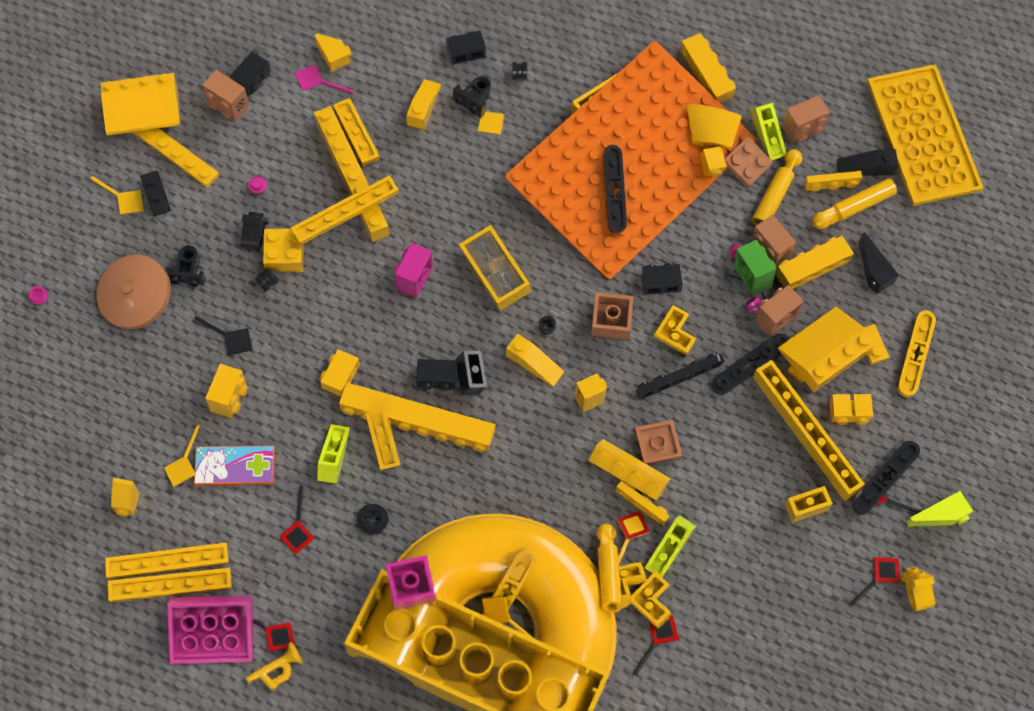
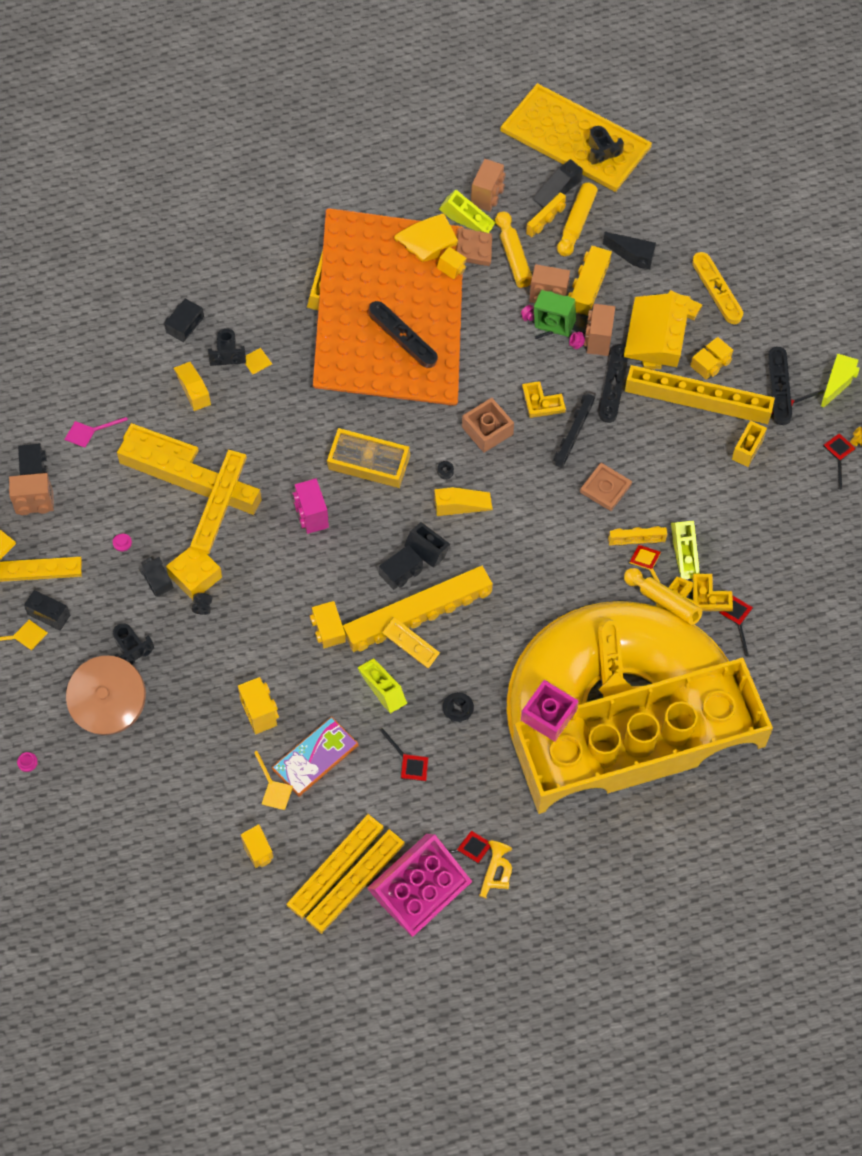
camera: 40 degrees left, 5 degrees down
(236, 341) = (222, 667): black piece -> none
(333, 51) = (81, 399): yellow slope -> none
(519, 70) = (242, 306): black wheel -> none
(590, 392) = (527, 488): yellow brick -> none
(629, 469) = (606, 519): yellow brick -> none
(661, 279) = (495, 373): black brick -> none
(707, 68) = (378, 202): yellow brick -> none
(935, 159) = (603, 146): none -> black pin

